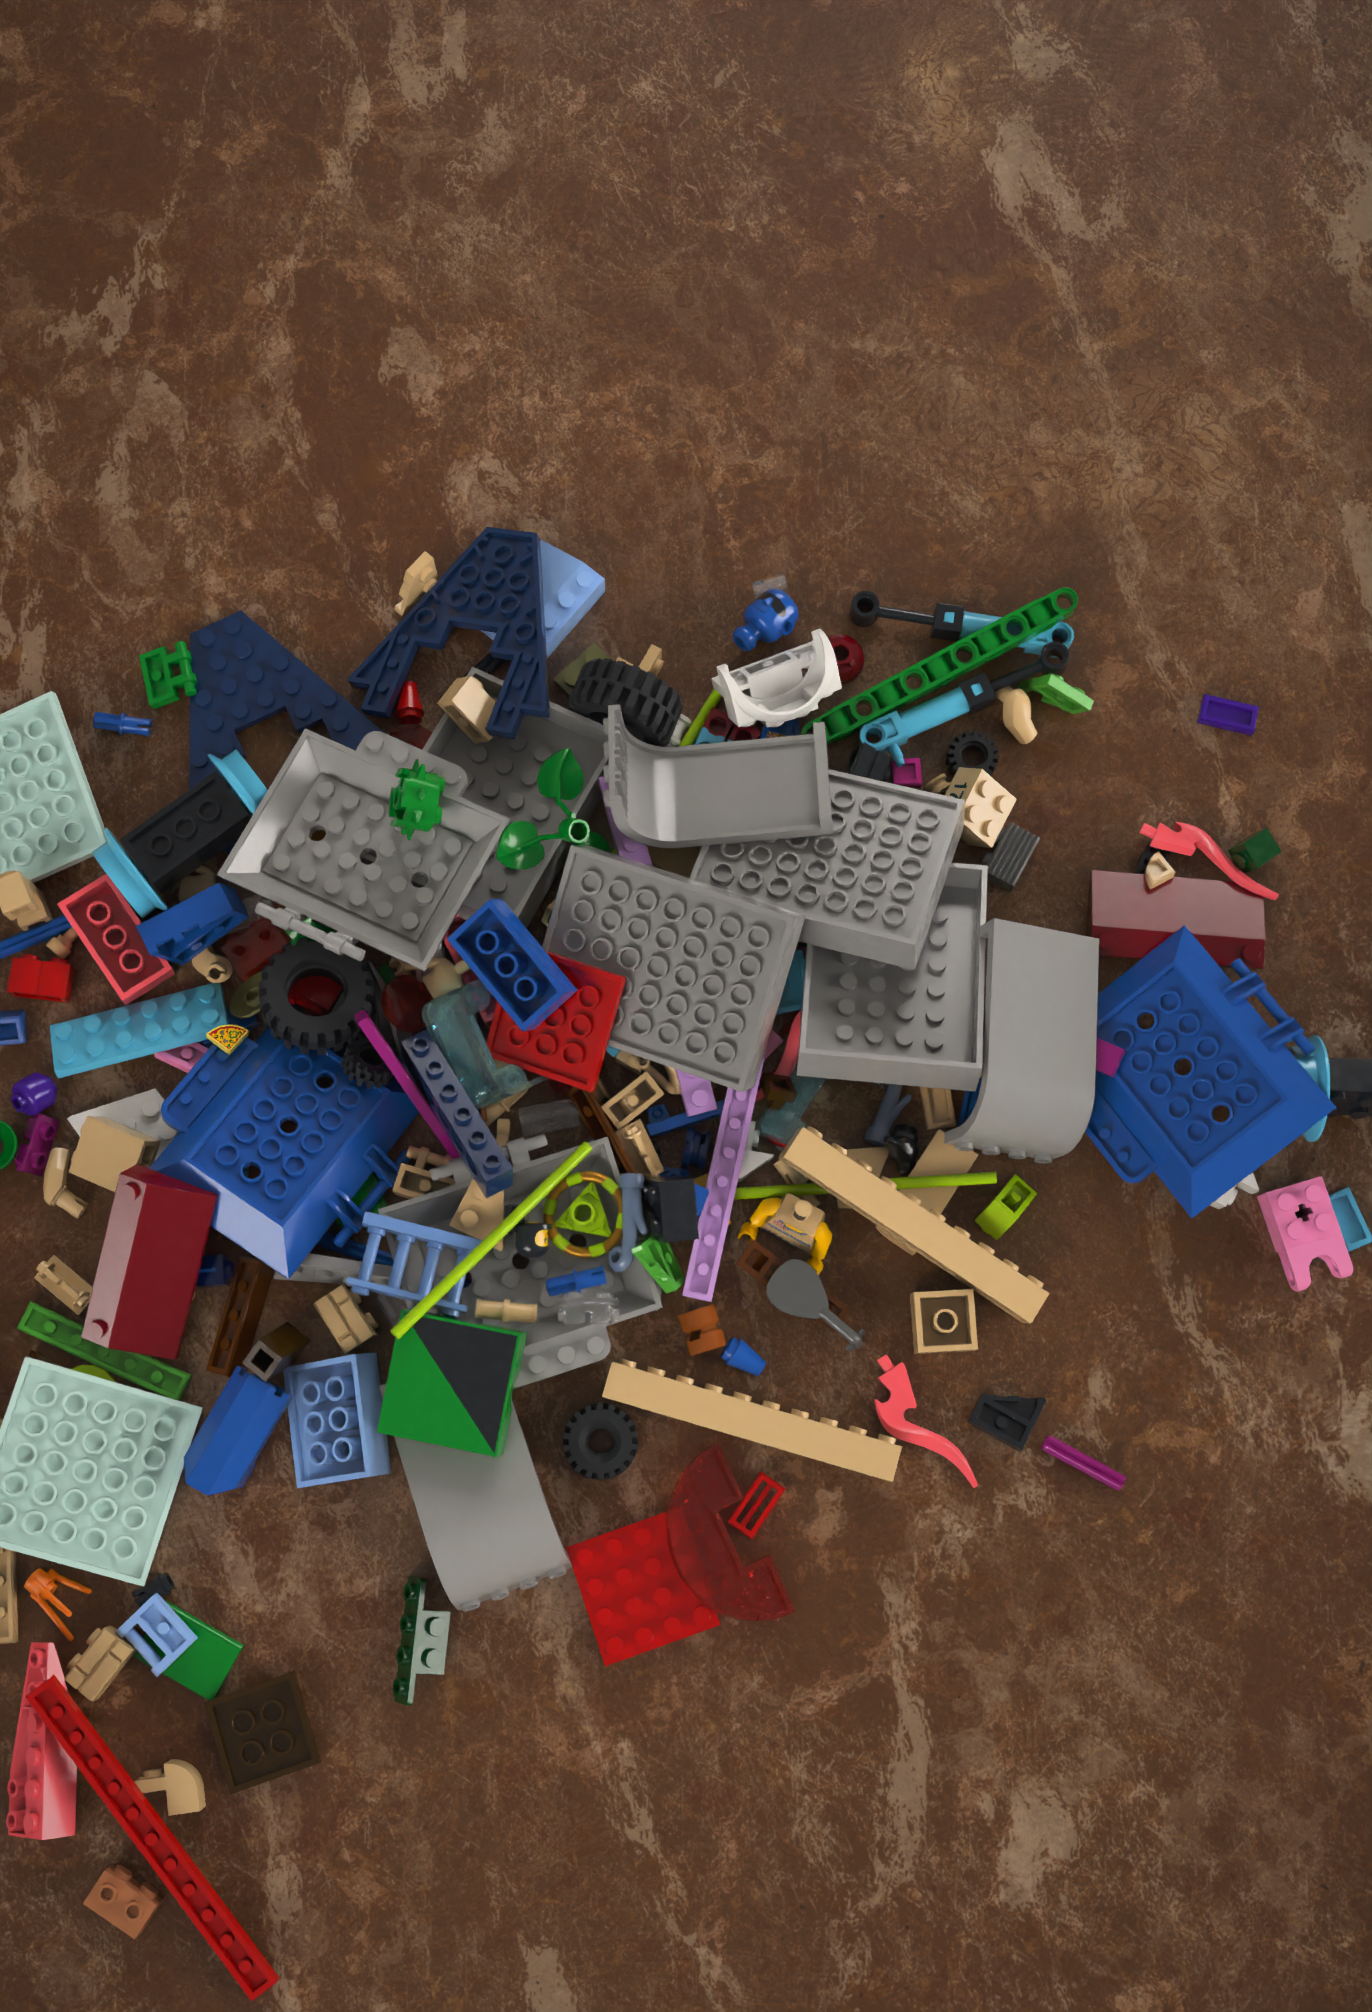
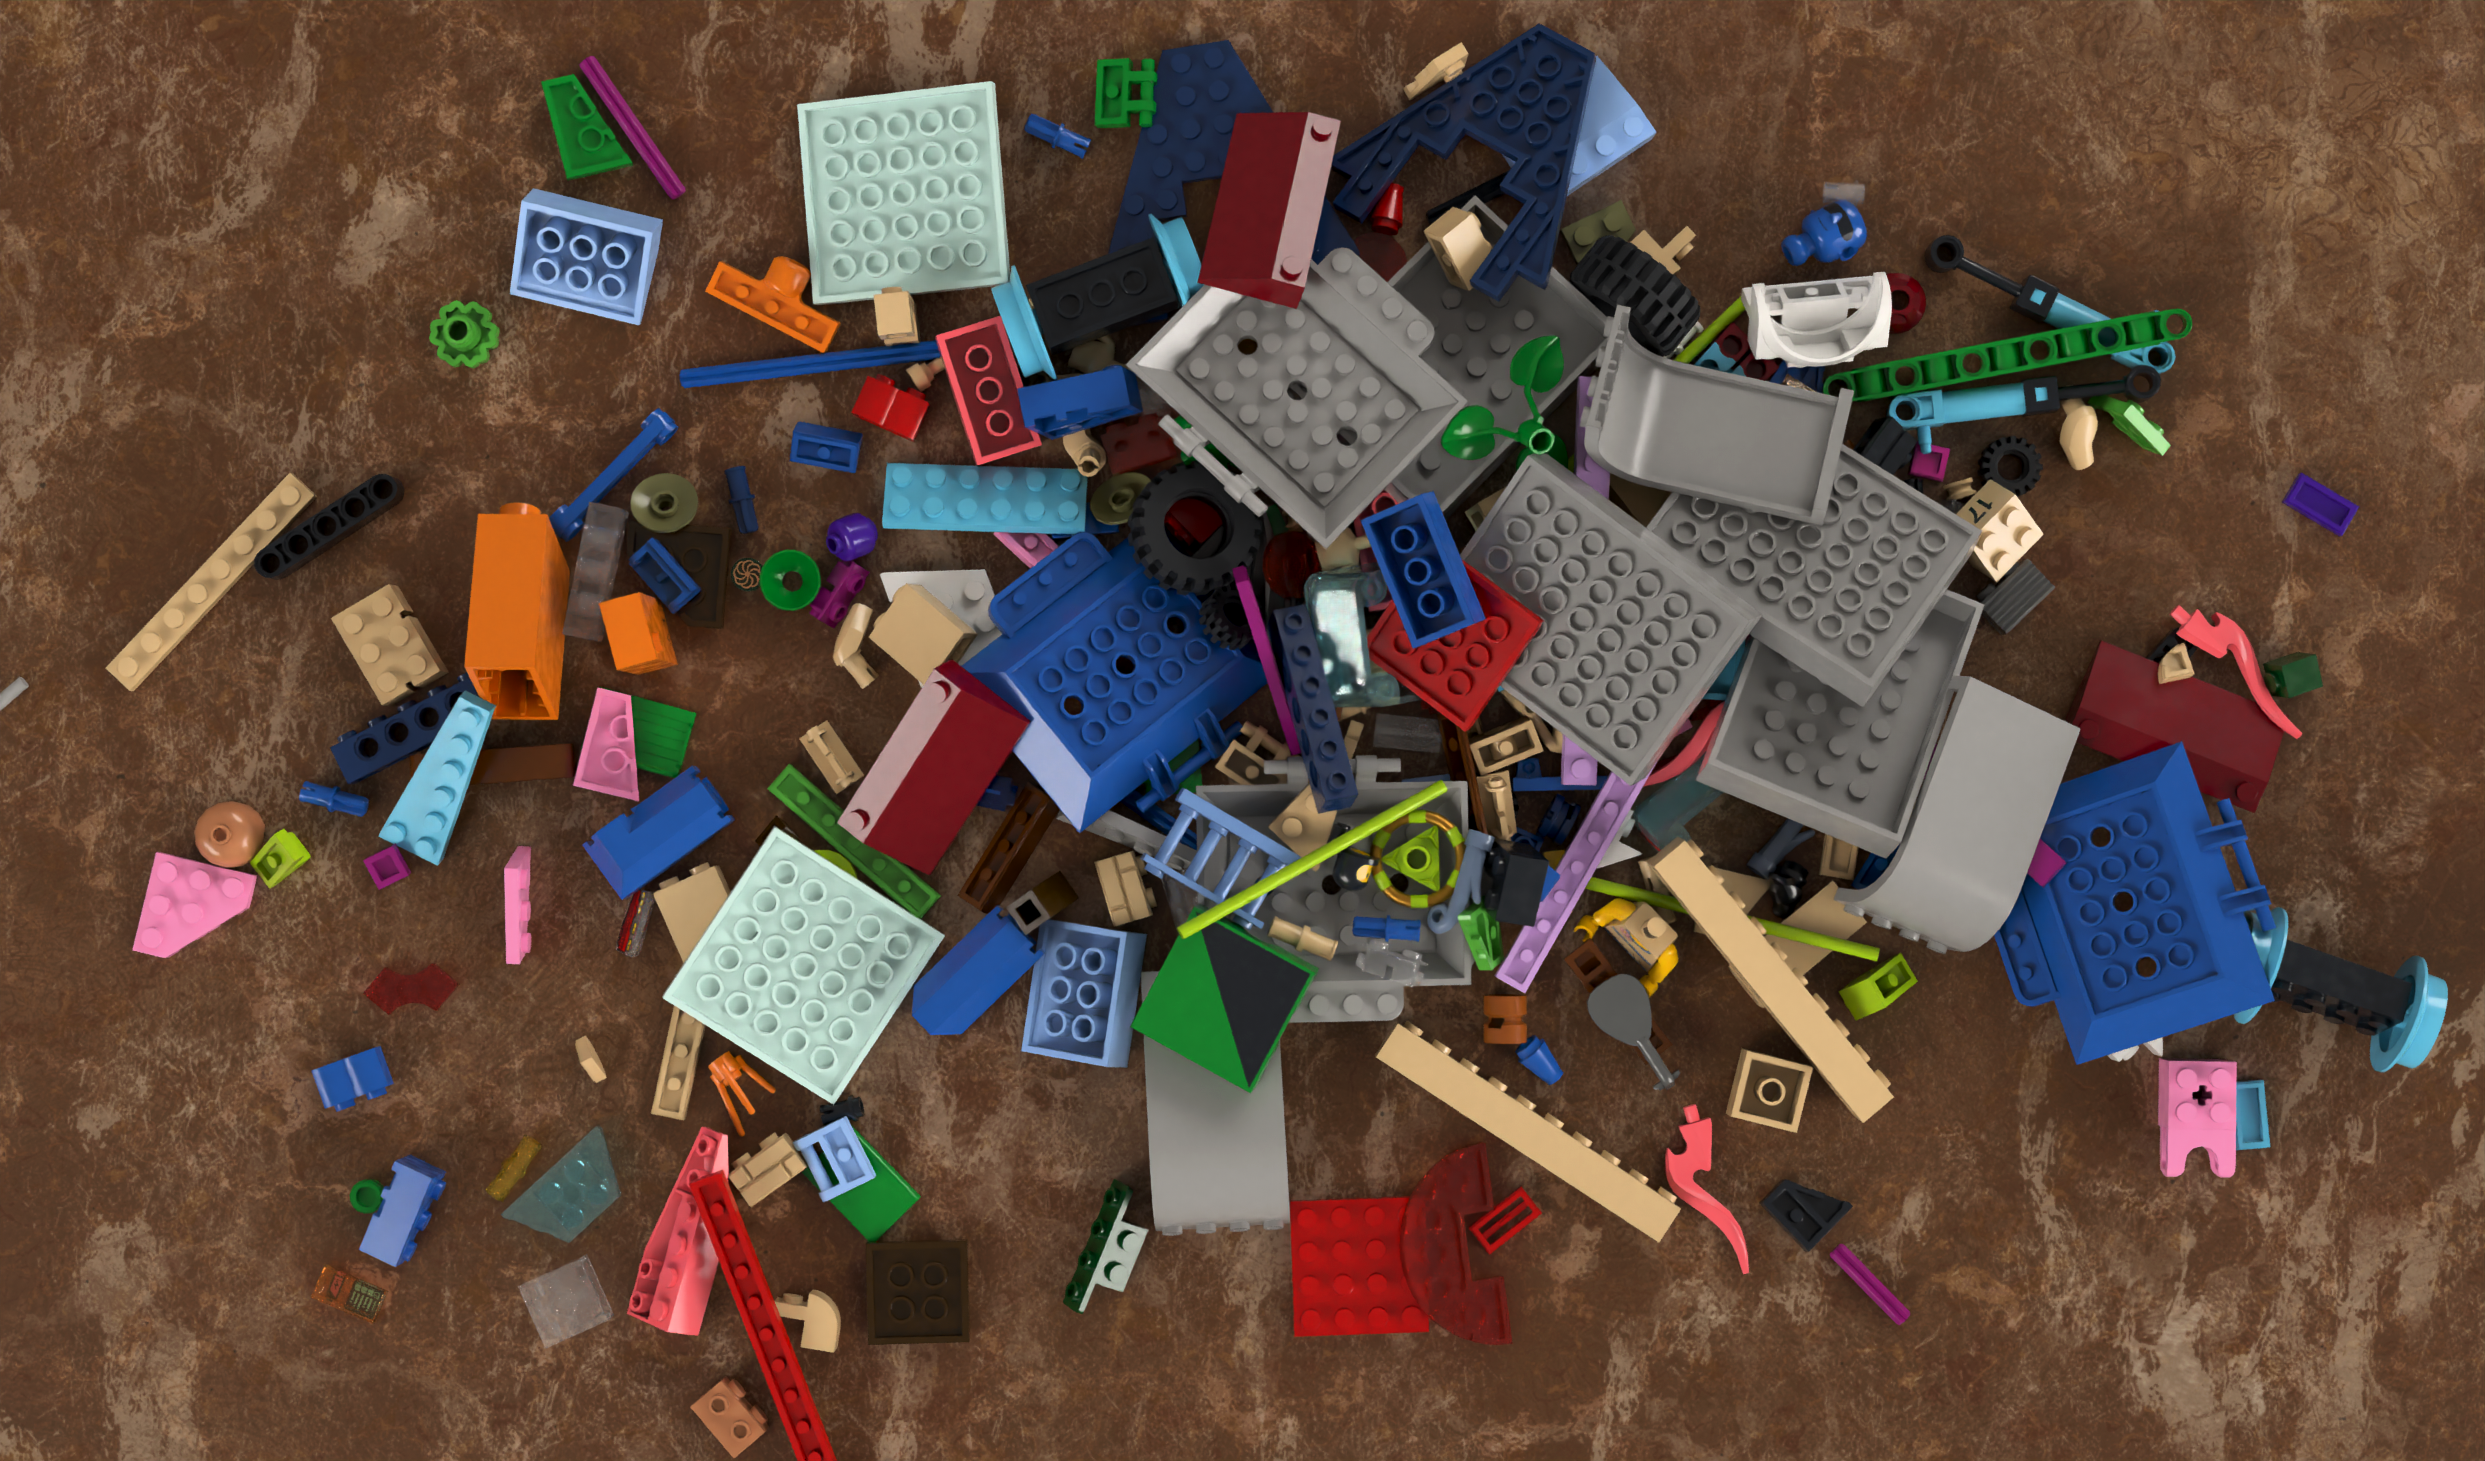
camera: 20 degrees right, 10 degrees up
(227, 1037) = (1082, 540): tile -> none
(304, 719) = (1269, 205): none -> dark red slope
(416, 800) = (1372, 352): green brick -> none
(577, 1446) = (1366, 1127): black tyre -> none
(777, 1090) = (1669, 784): dark brown tile -> none

